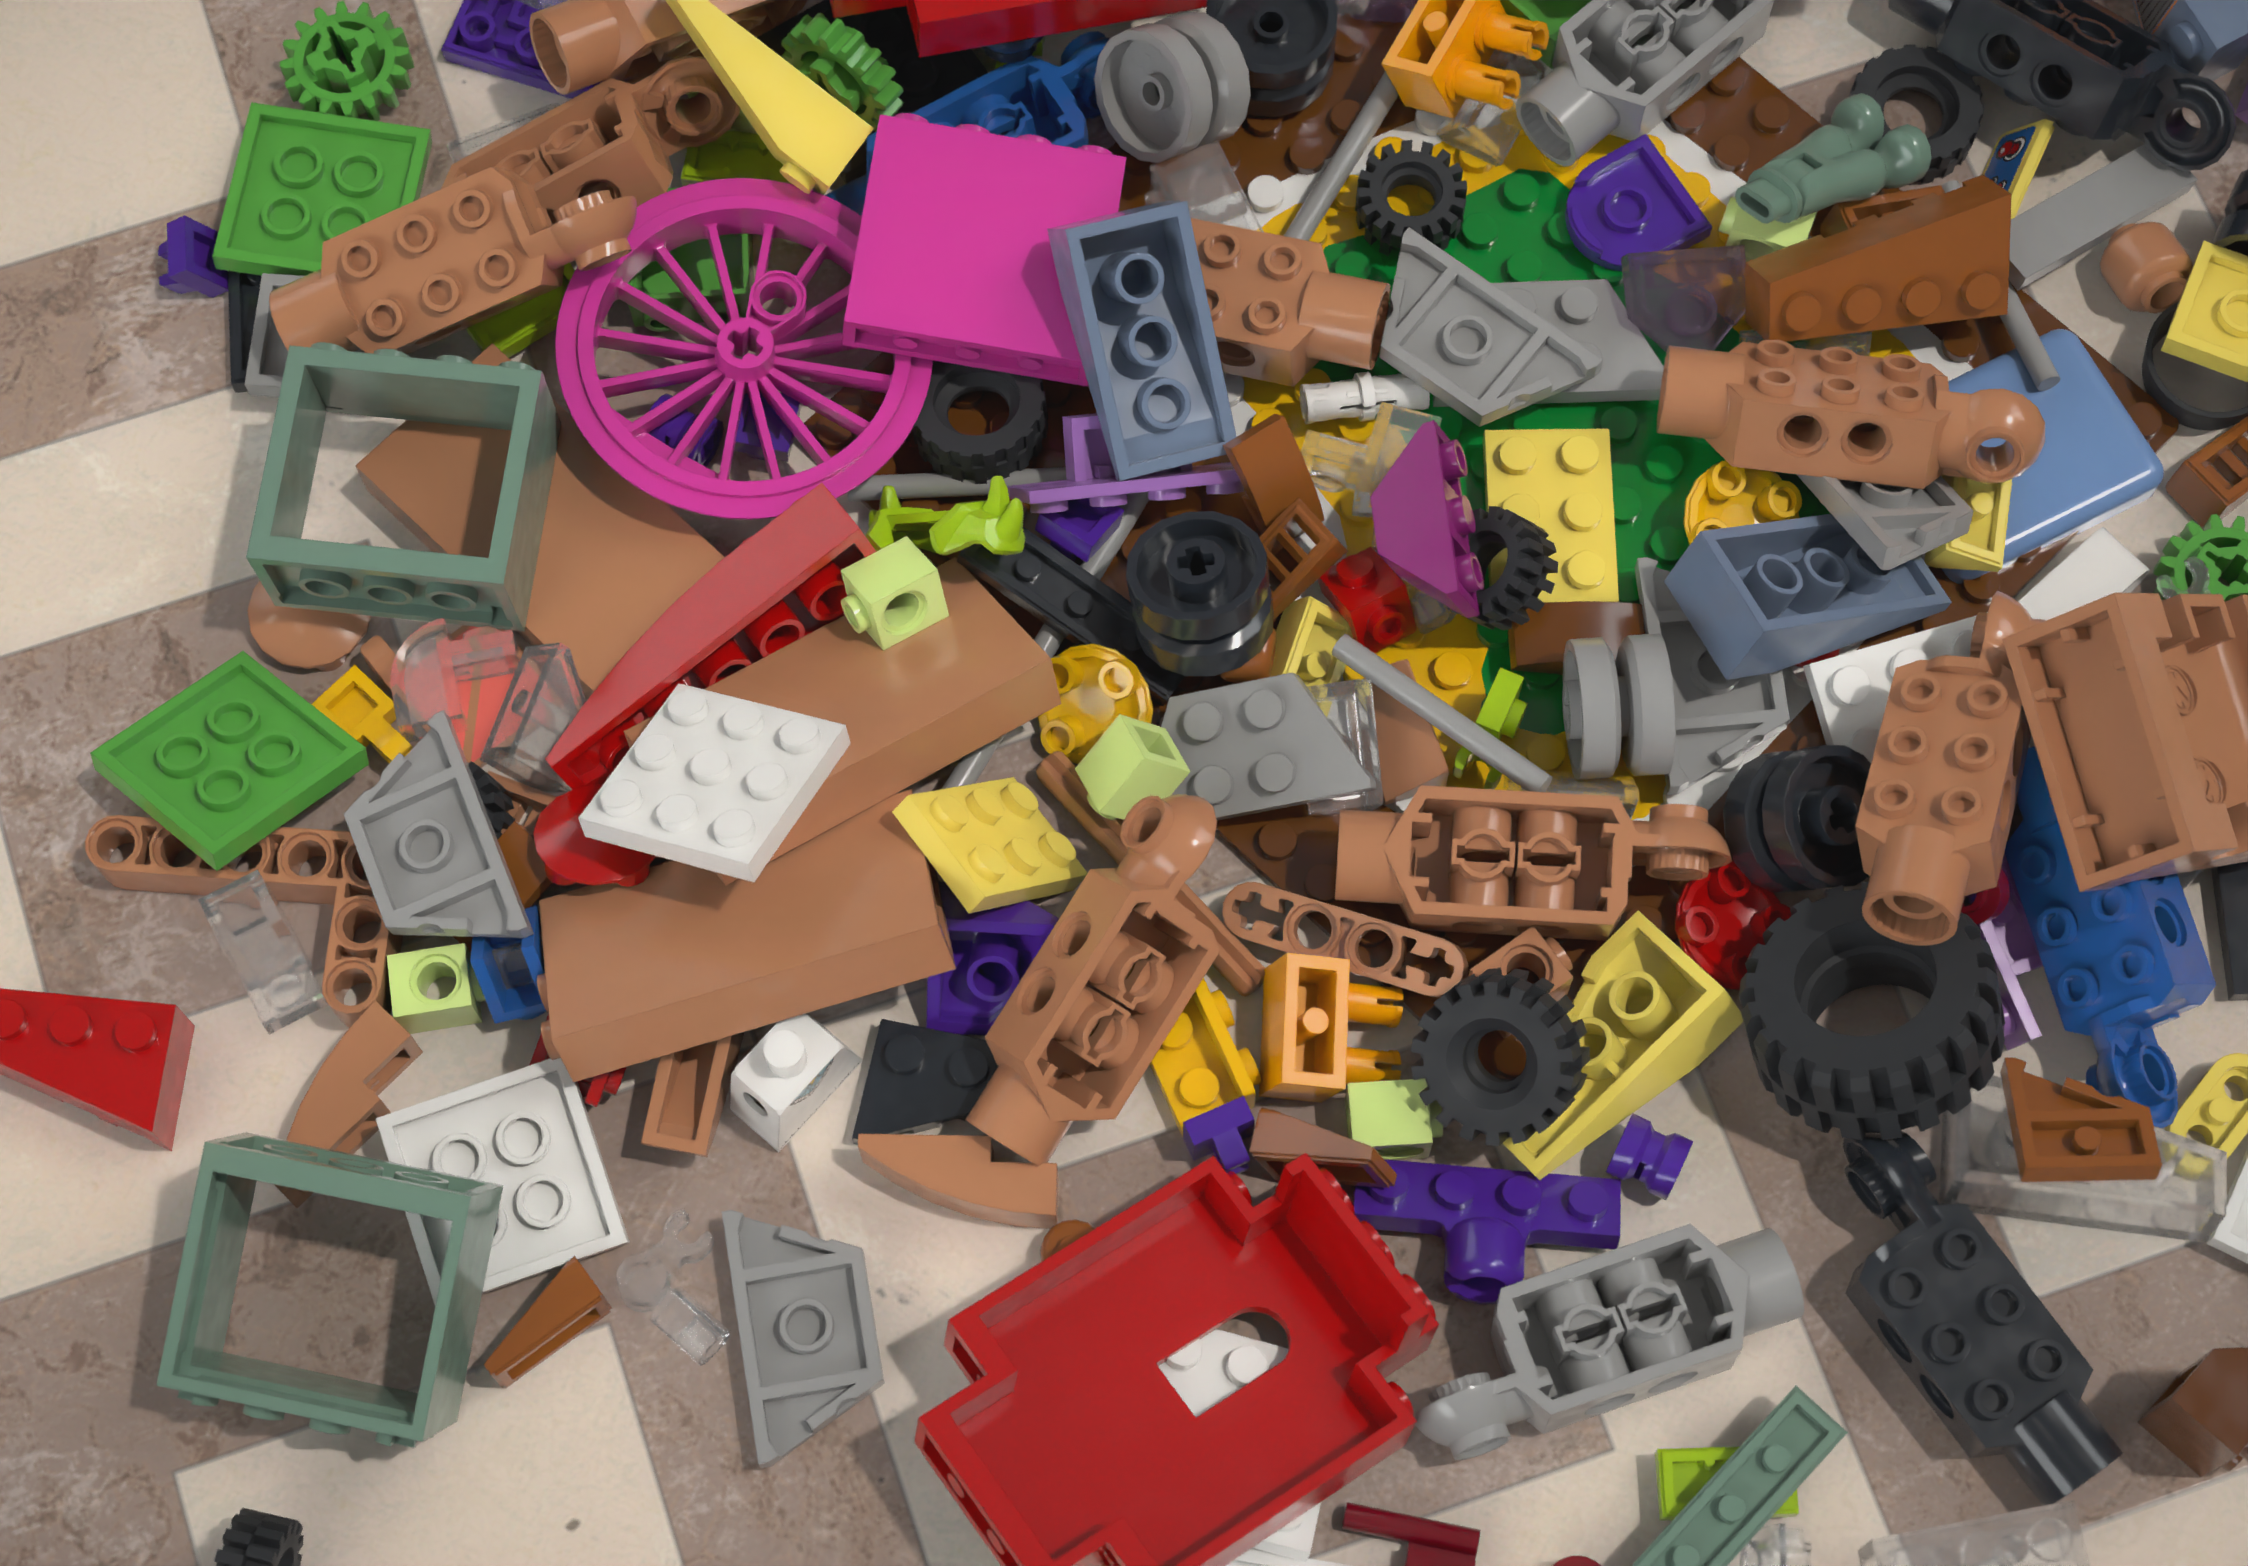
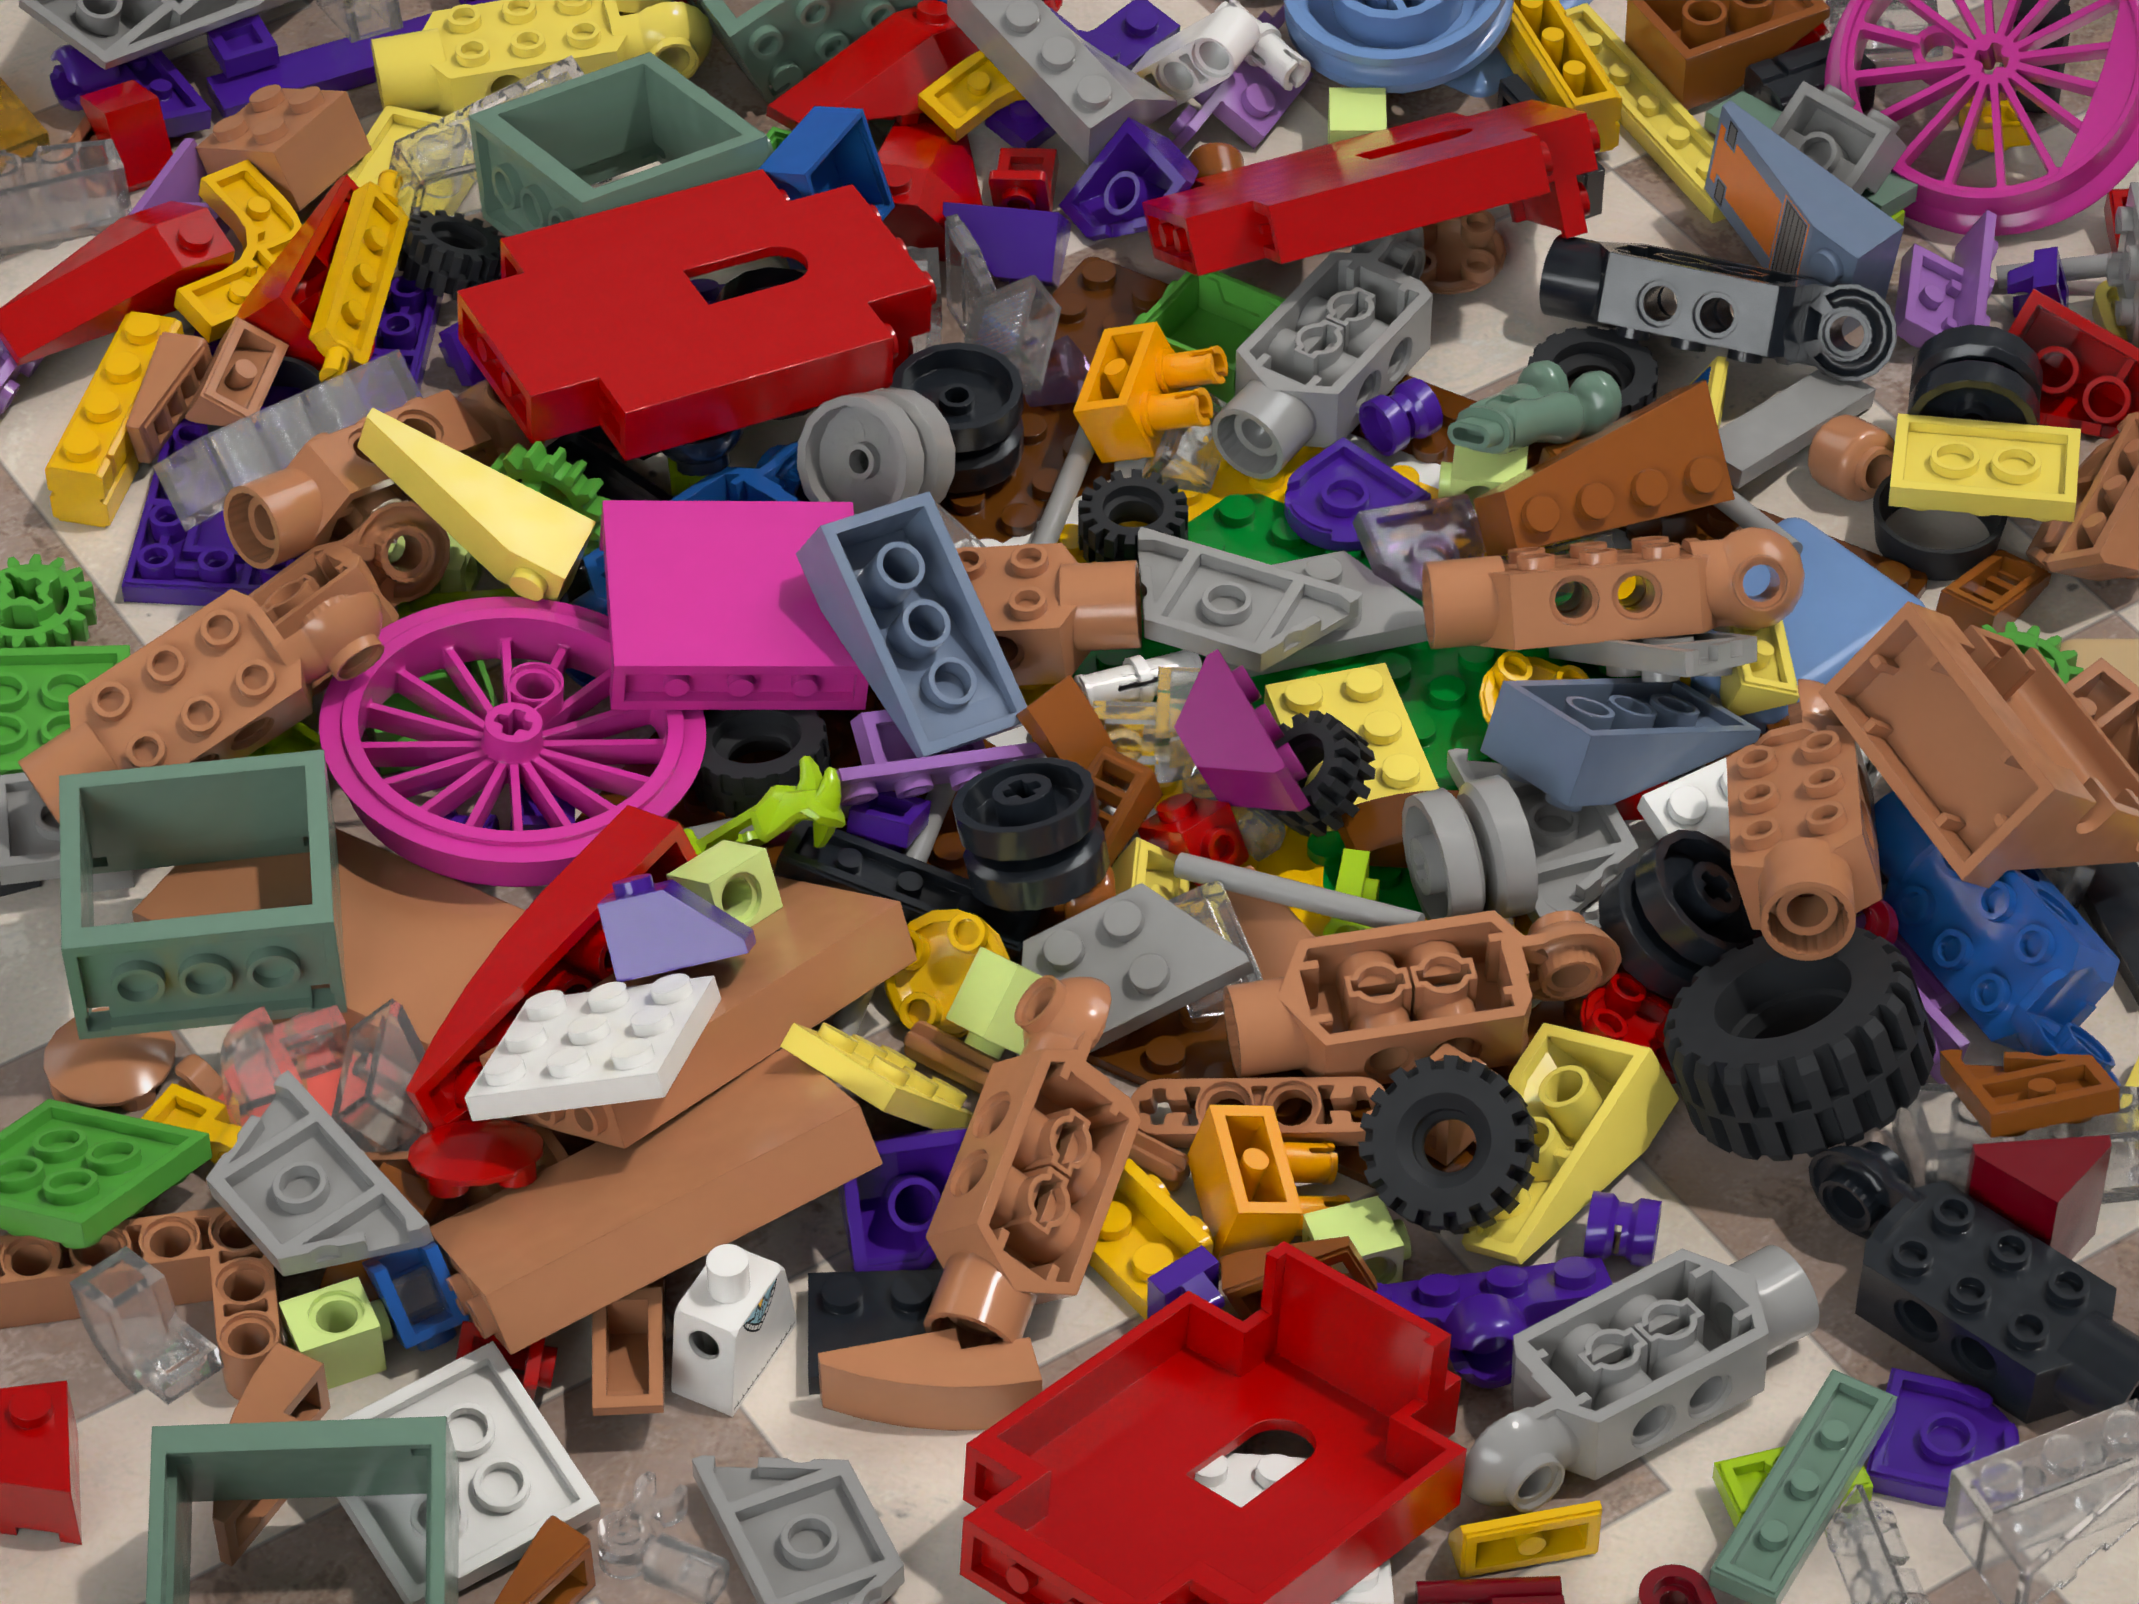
camera: 15 degrees left, 25 degrees down
(817, 661) = (666, 928): none -> slope
(1439, 1478) = (1526, 1539): none -> yellow slope
(1708, 124) = (1397, 418): none -> dark purple wheel
(1888, 1470) = (1933, 1432): none -> dark purple tile
(2052, 1238) = (2044, 1186): none -> dark red slope

